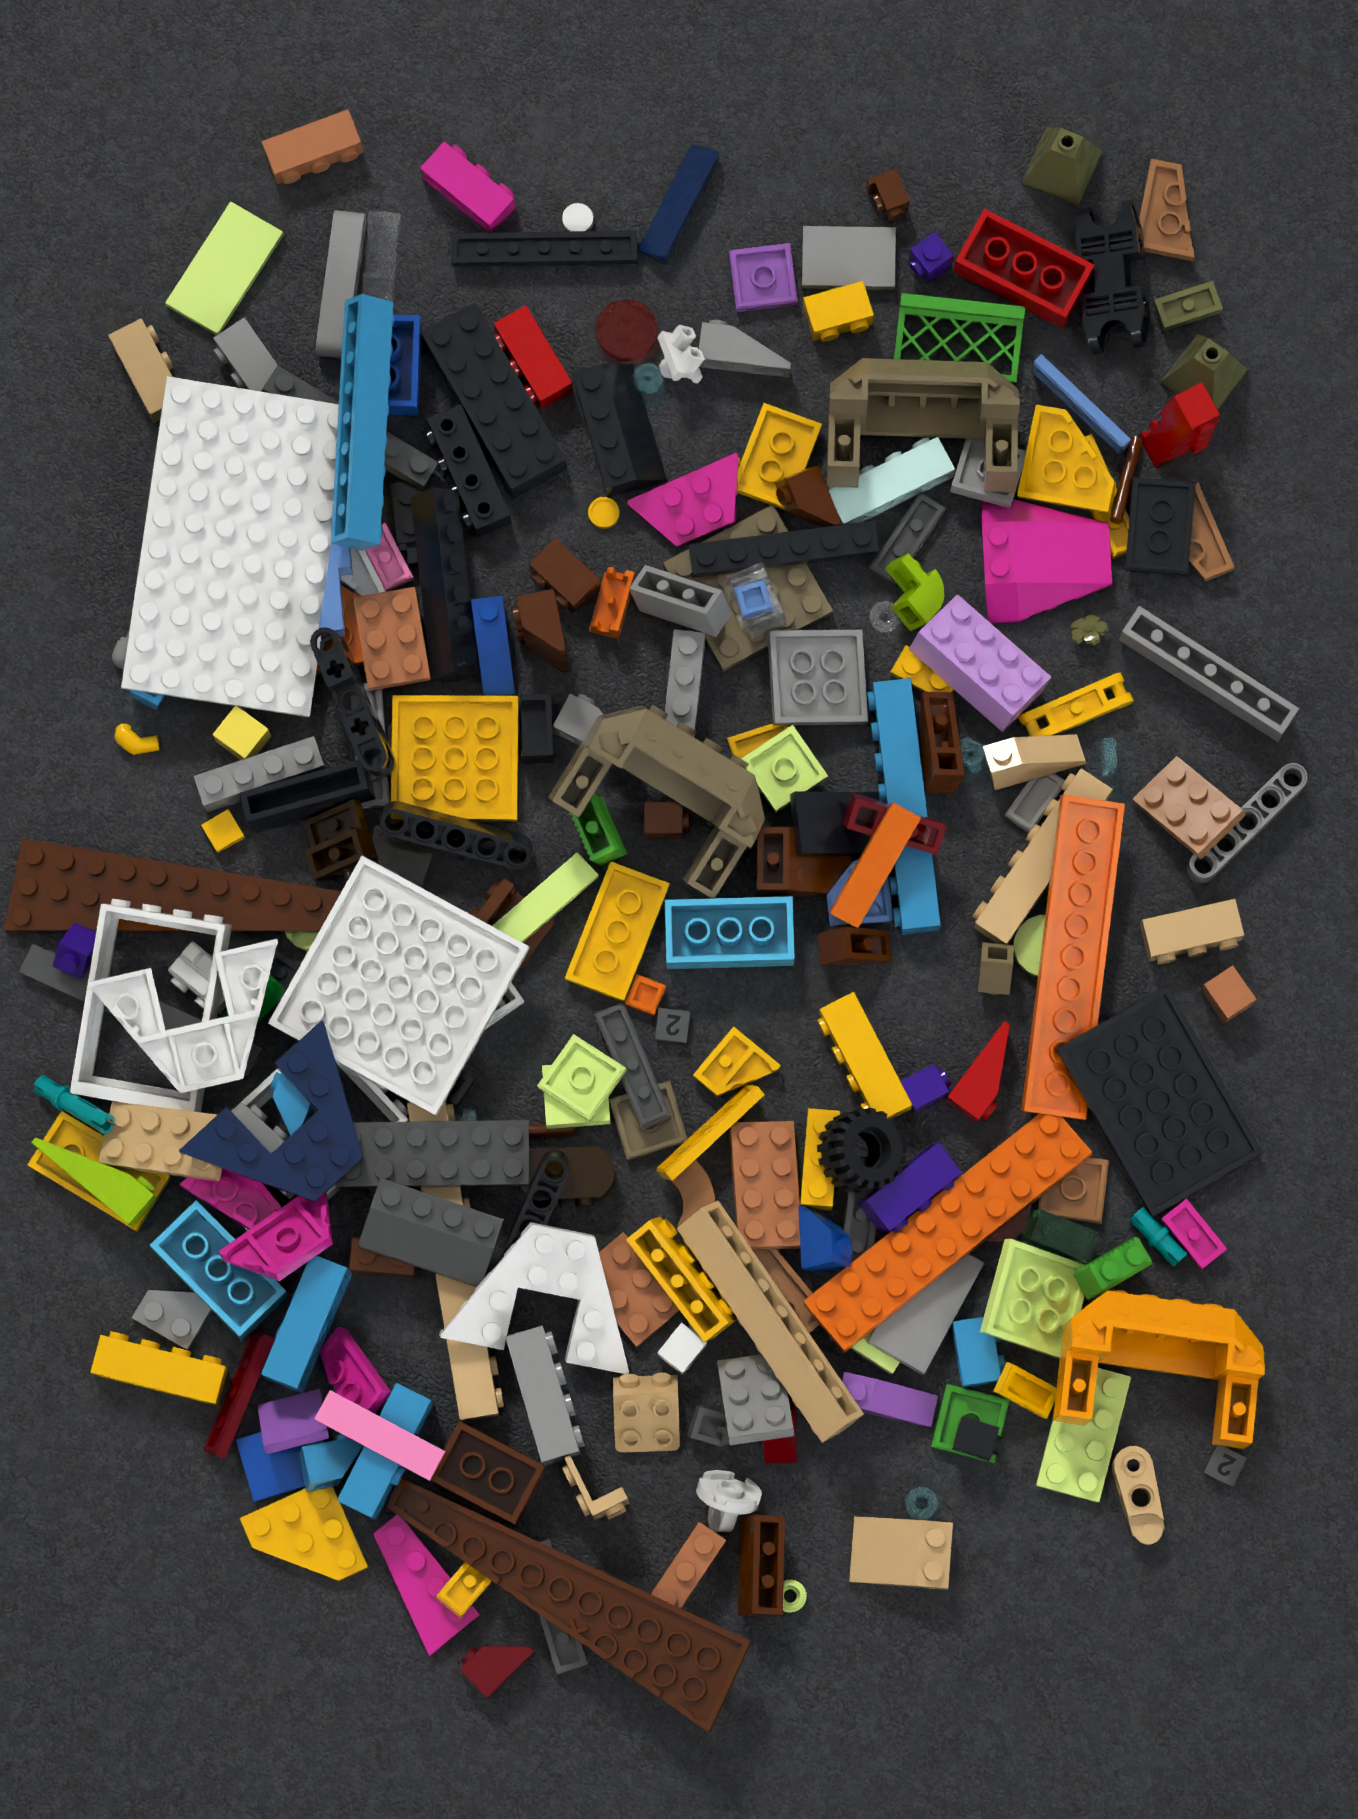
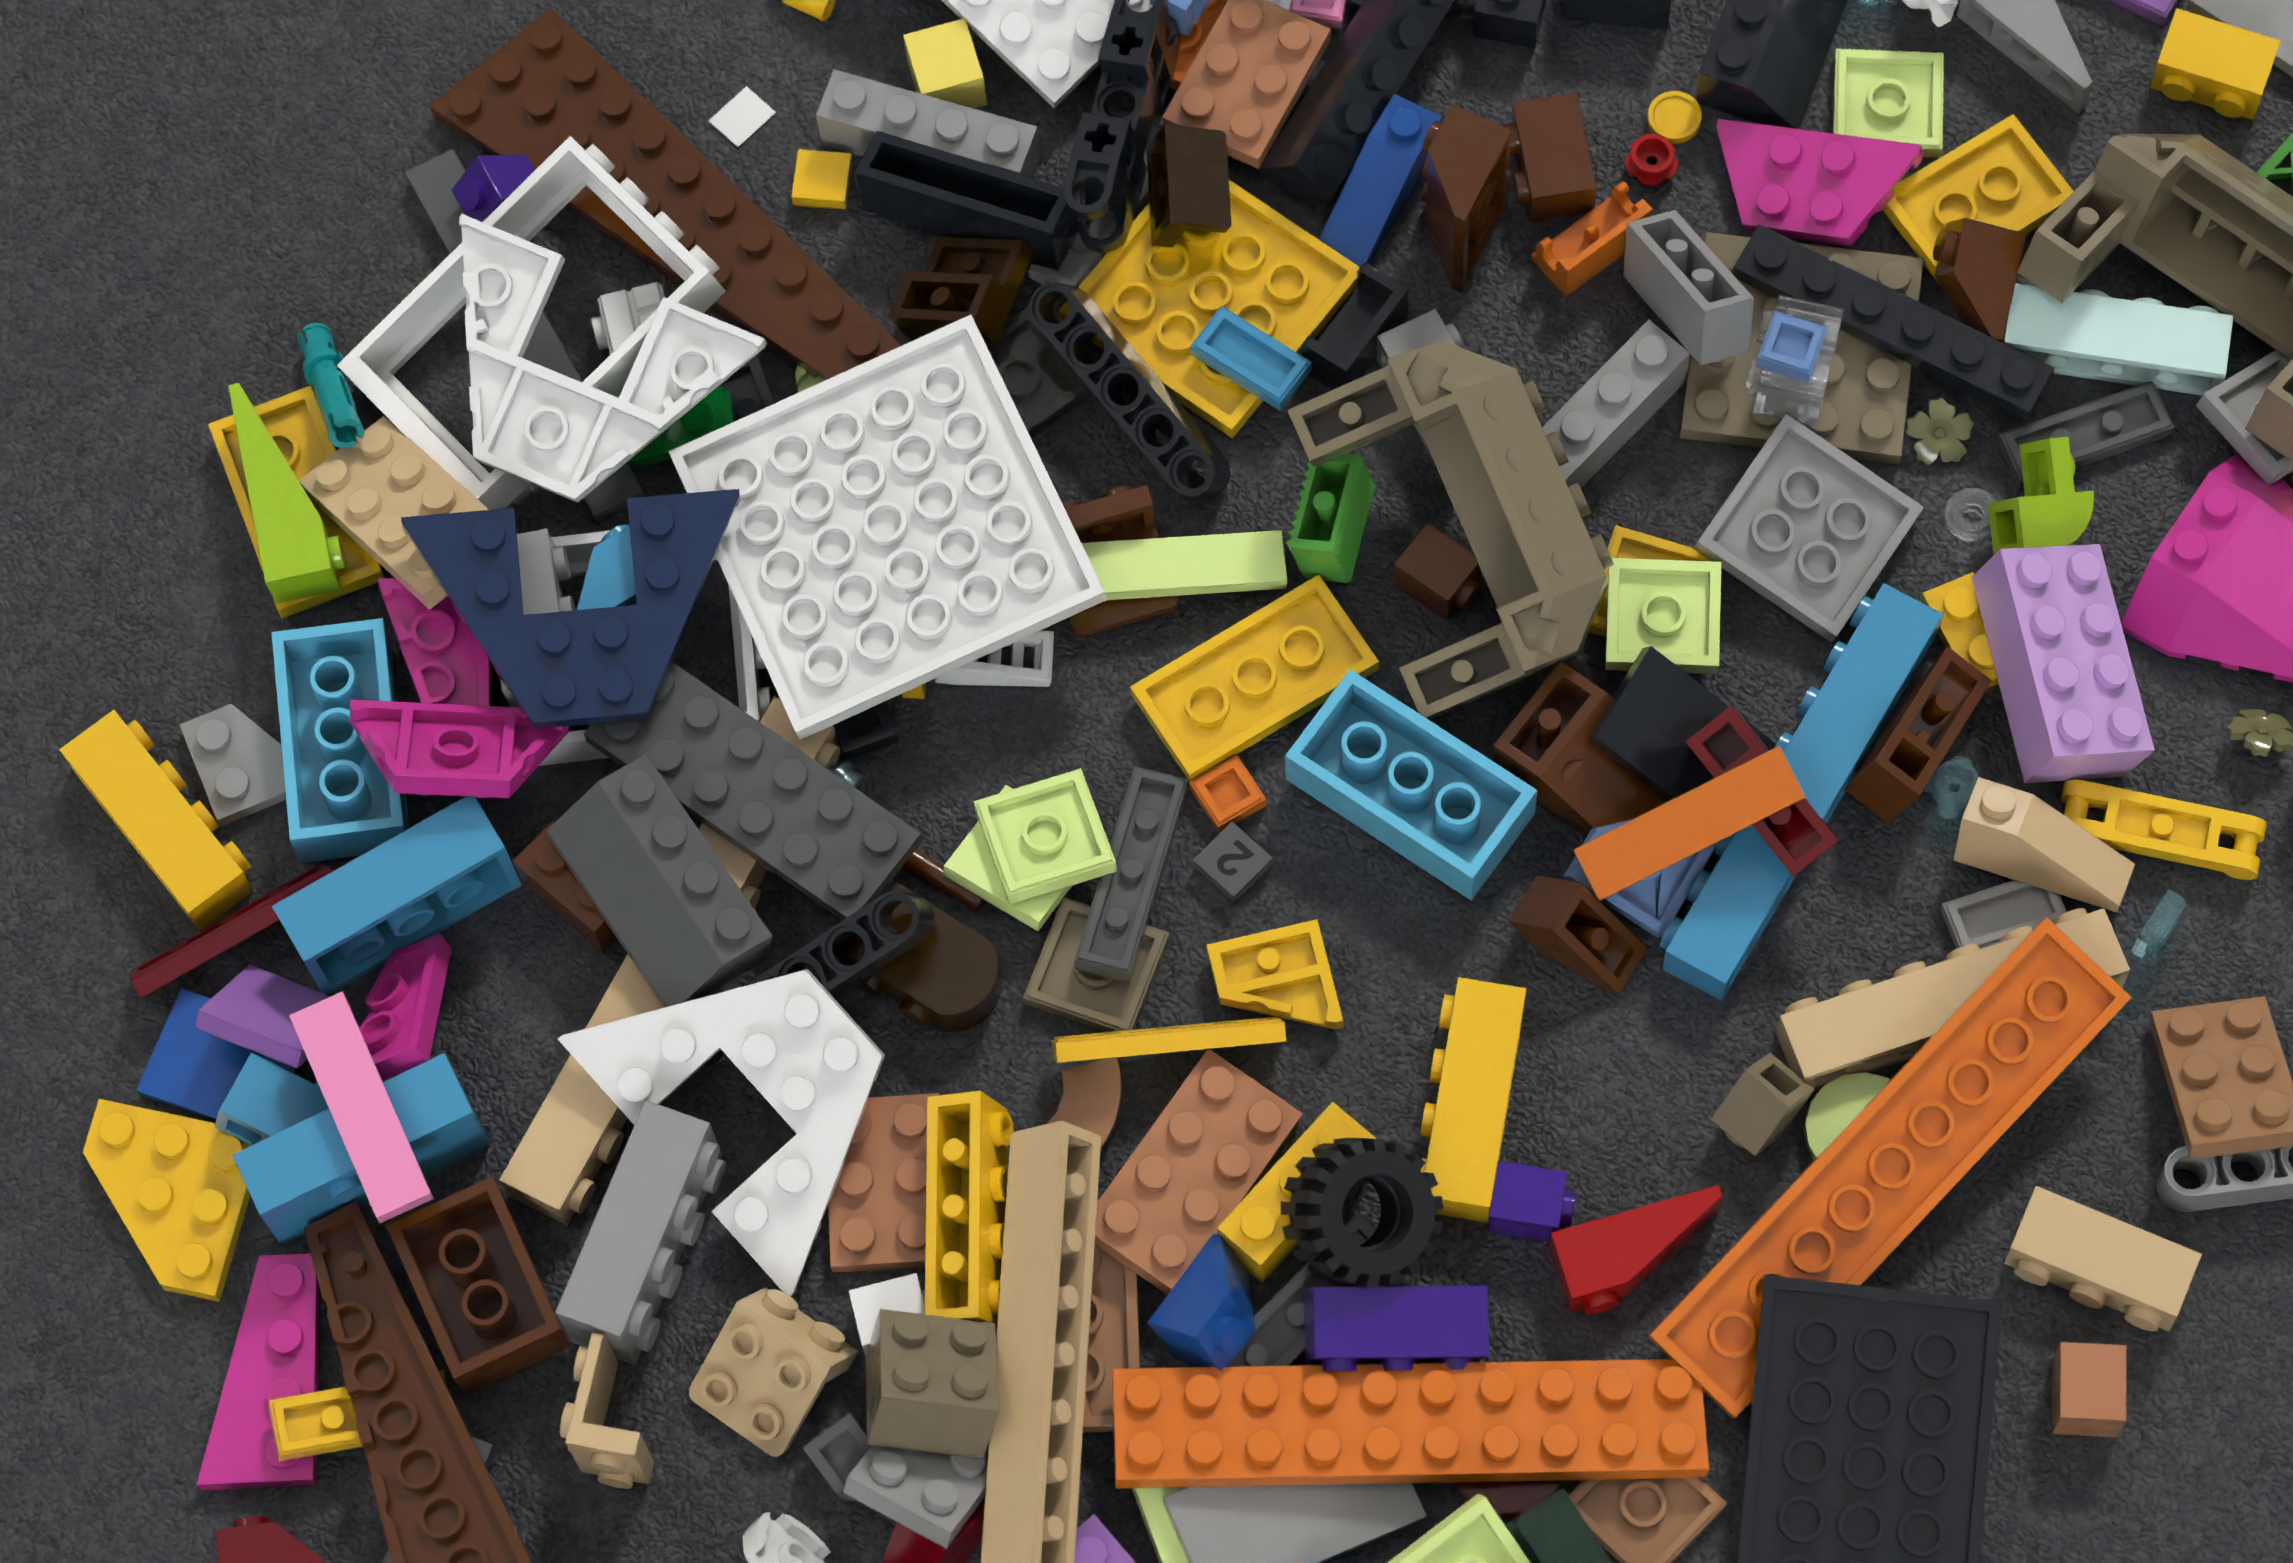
camera: 40 degrees right, 10 degrees down
(157, 826) = (742, 116): none -> white sticker
(407, 714) = (1187, 183): none -> dark brown panel
(500, 778) = (1250, 358): none -> dark azure tile
(610, 535) = (1654, 147): none -> red plate
(698, 434) = (1890, 96): none -> yellowish green tile
(730, 1368) = (931, 1384): none -> dark tan brick
(842, 586) = (1939, 432): none -> olive plant

